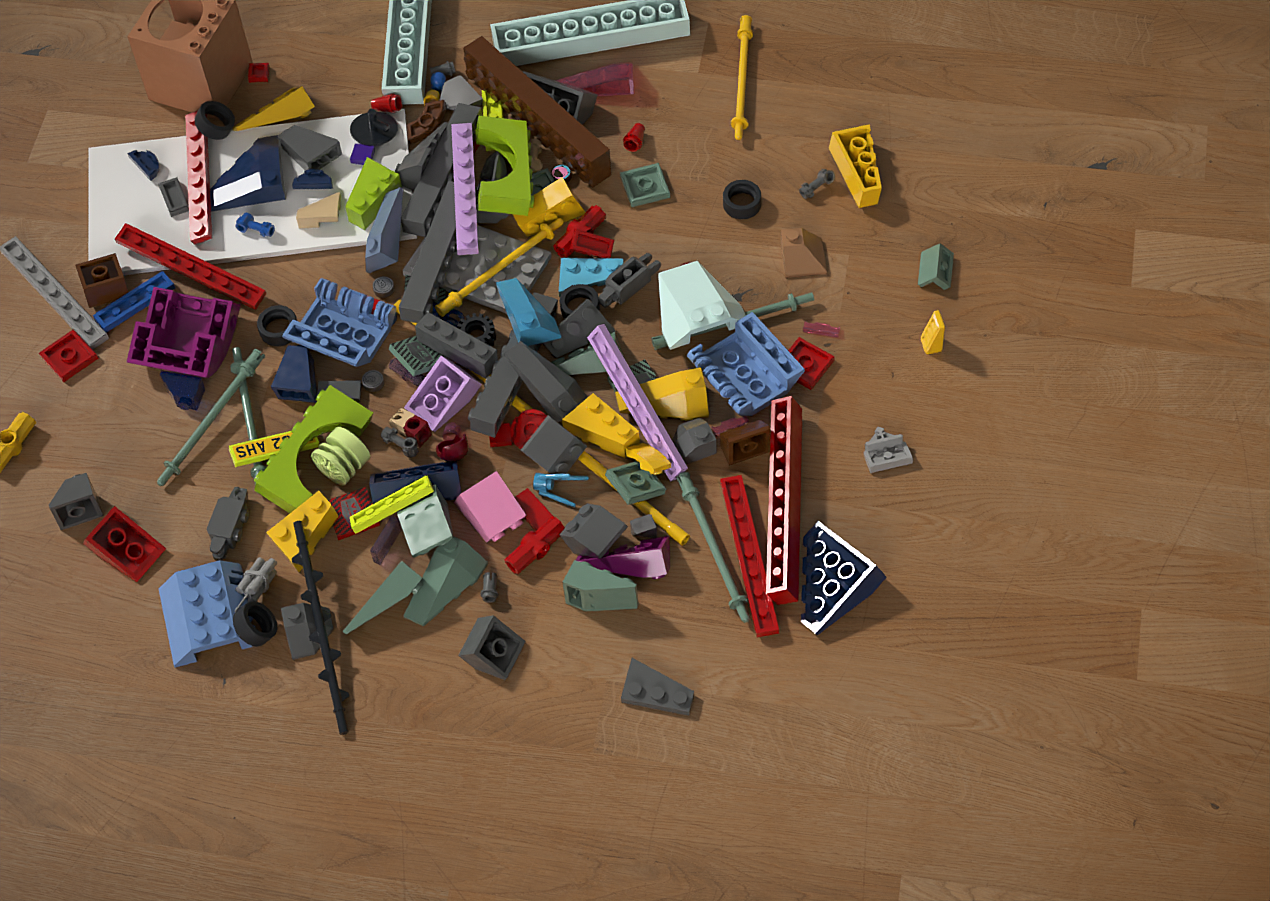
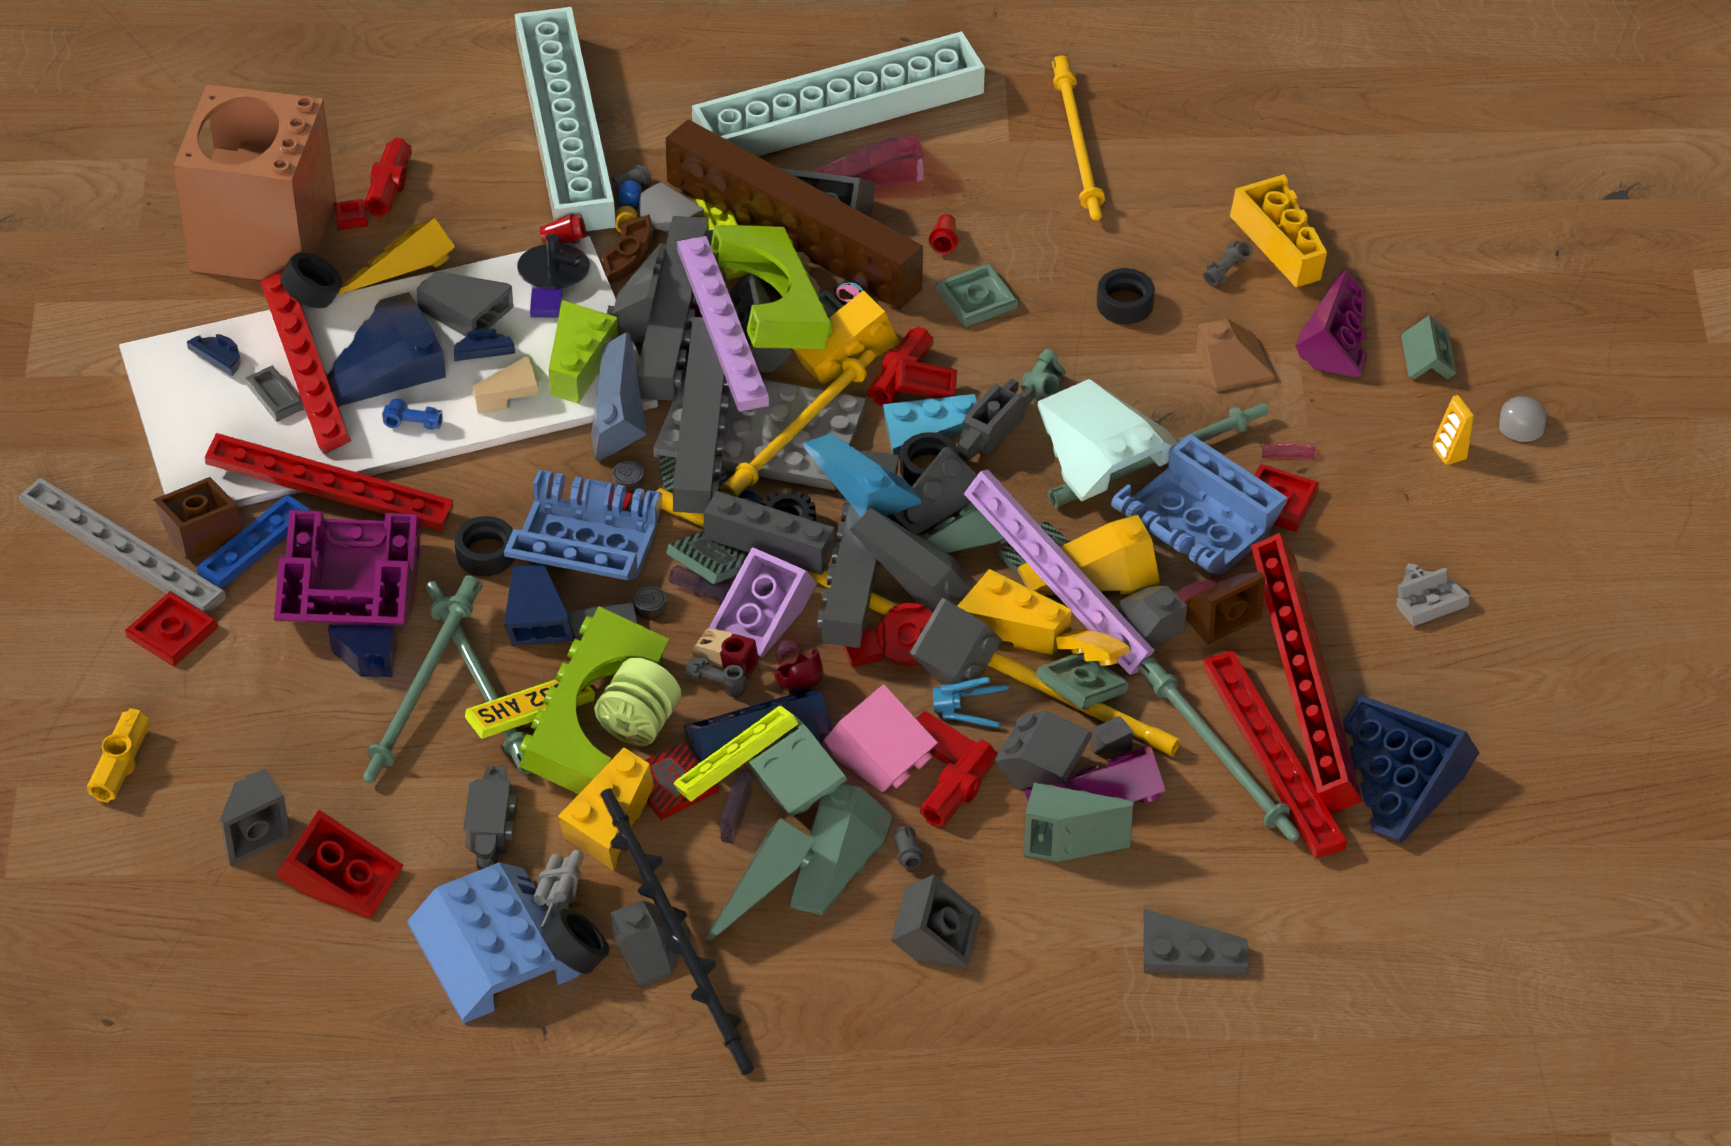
camera: 15 degrees left, 10 degrees down
(288, 49) = (388, 177): none -> red piece
(671, 252) = (1044, 376): none -> sand green plate
(874, 247) = (1334, 332): none -> magenta wedge
(986, 328) = (1523, 419): none -> light grey hair

